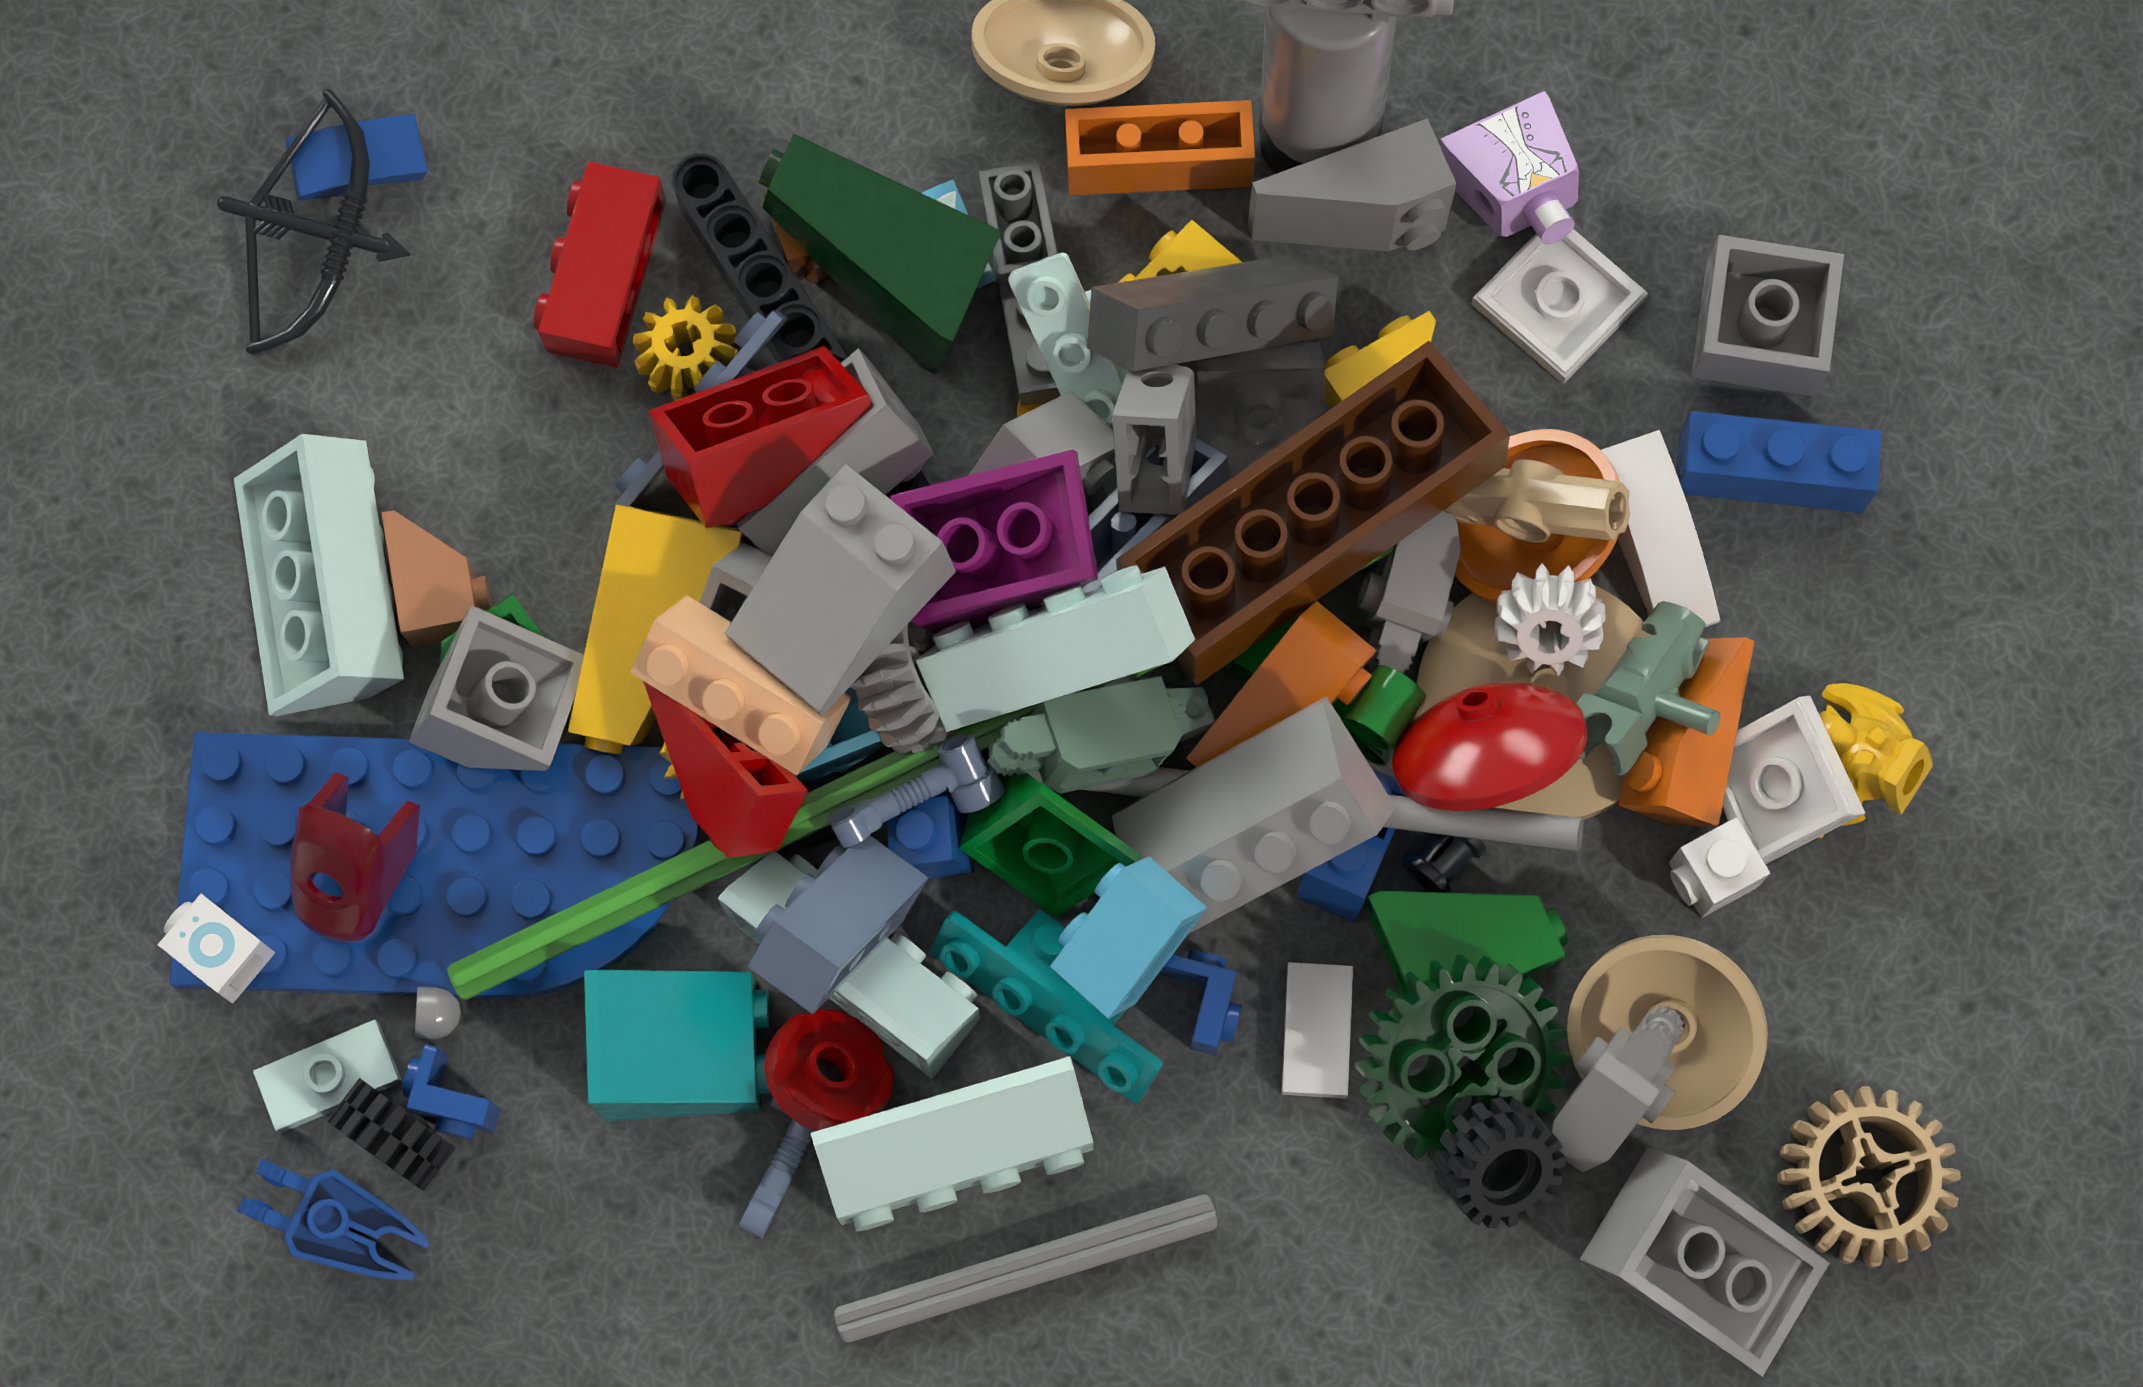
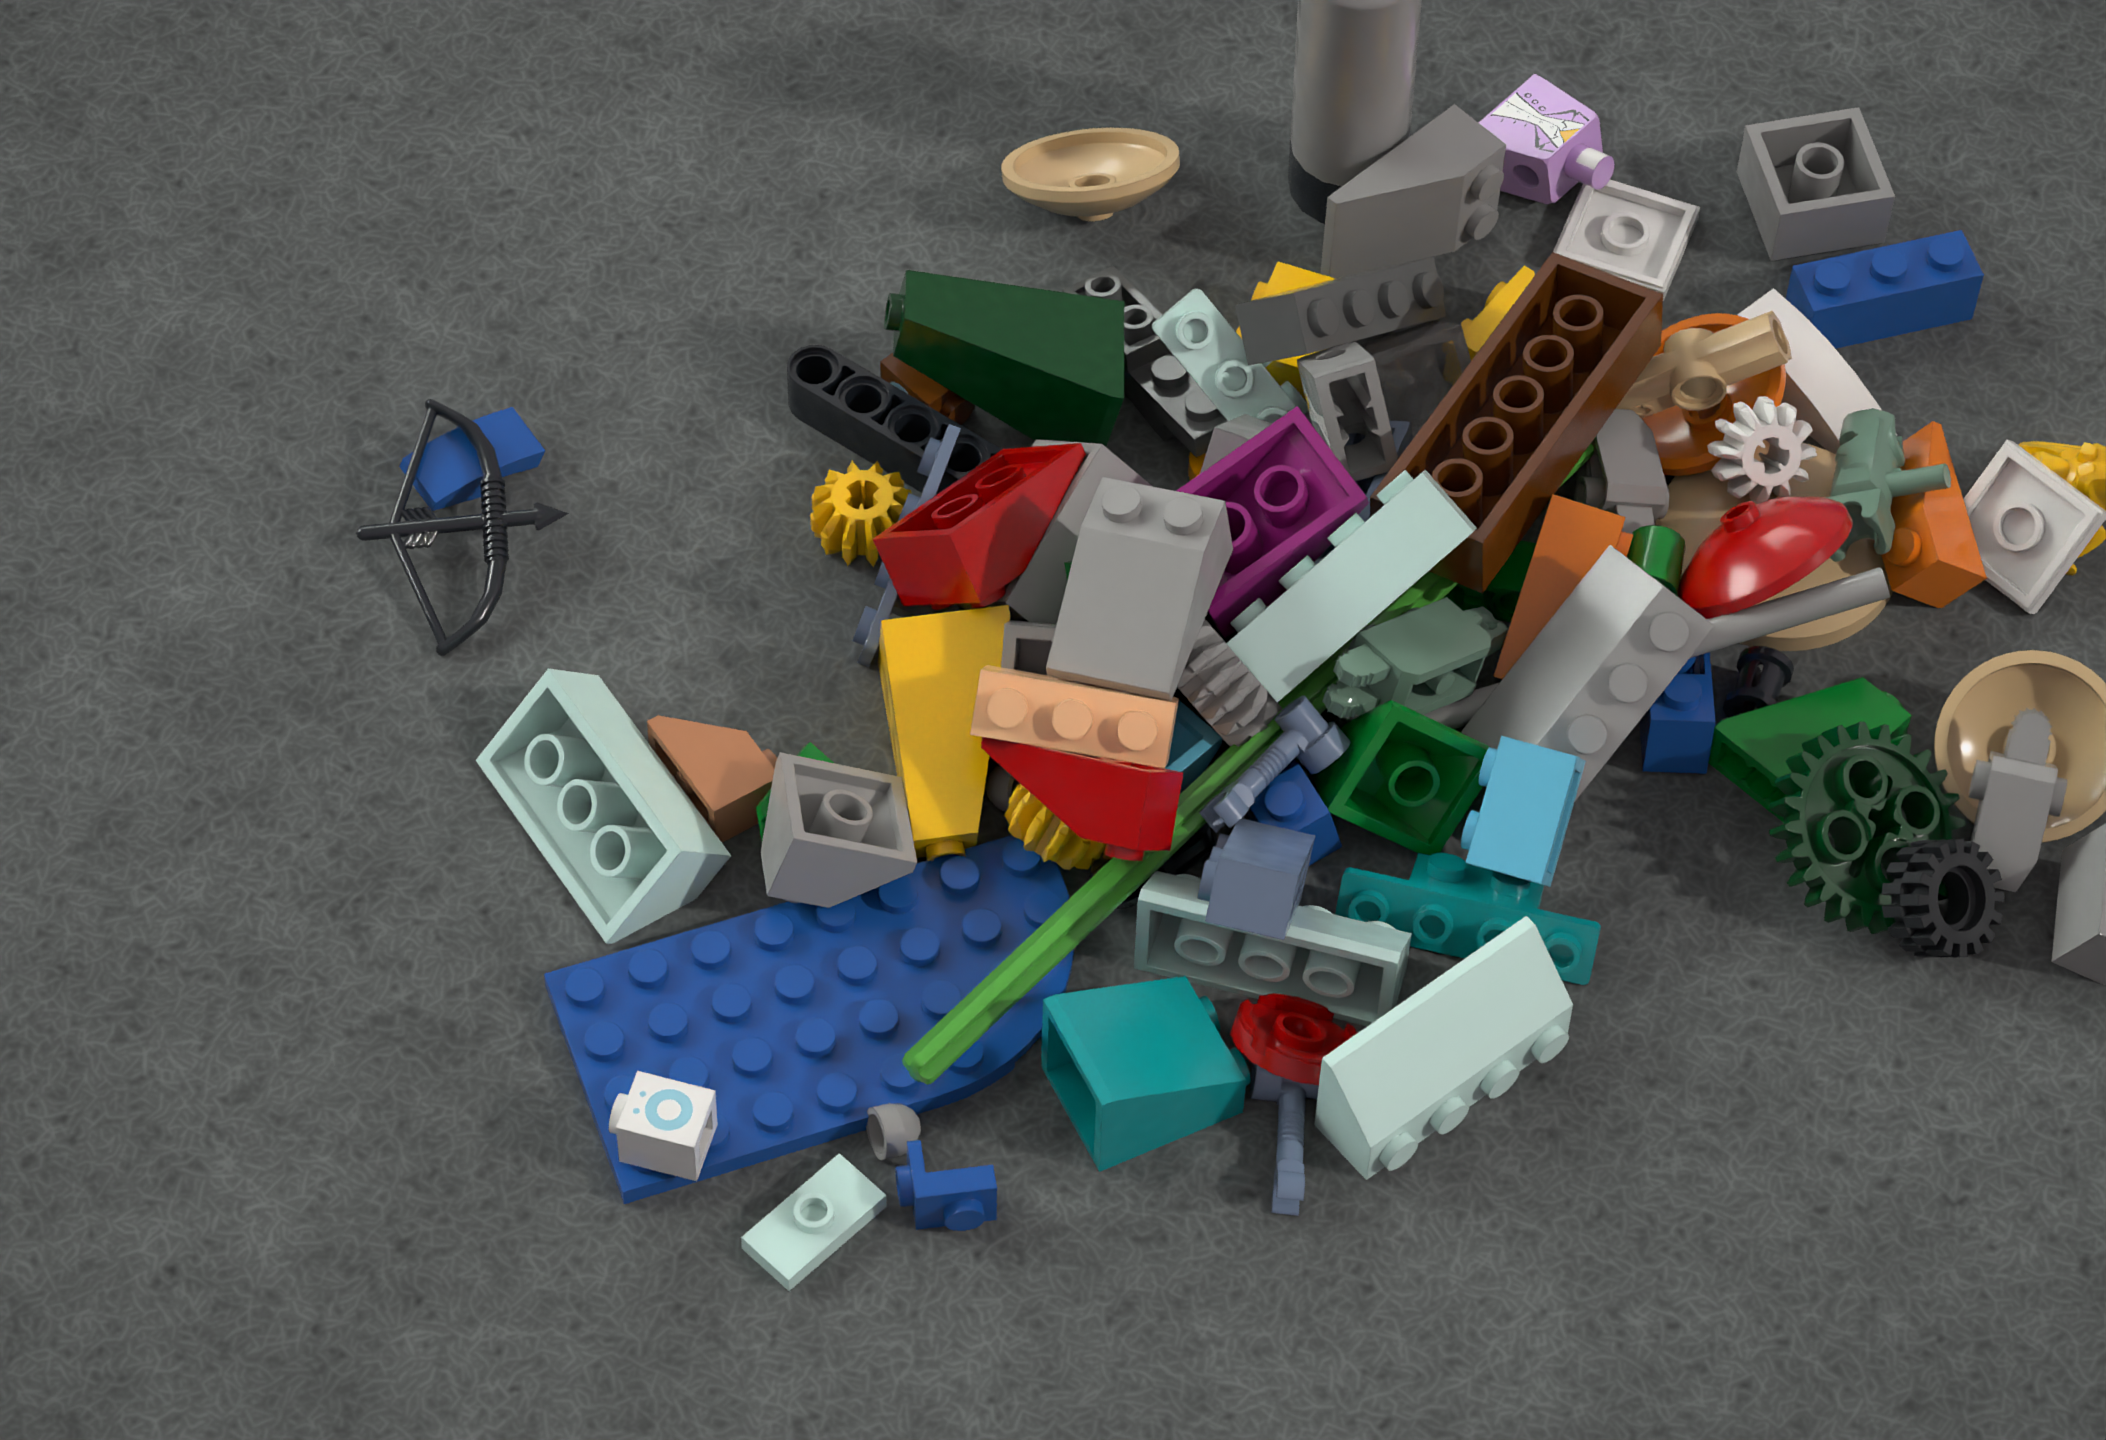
camera: 25 degrees left, 20 degrees down
(323, 1221) = (894, 1328): blue hinge -> none
(352, 855) = (769, 962): dark red piece -> none
(391, 1134) = (910, 1228): black tyre -> none
(600, 264) = (747, 471): red brick -> none
(1025, 1268) = (1556, 1150): light grey axle -> none
(1159, 147) = (1217, 220): orange brick -> none
(1217, 1014) = (1614, 856): blue bracket -> none
(1317, 1030) = (1719, 867): white tile -> none
(1717, 868) = (2003, 610): white brick -> none

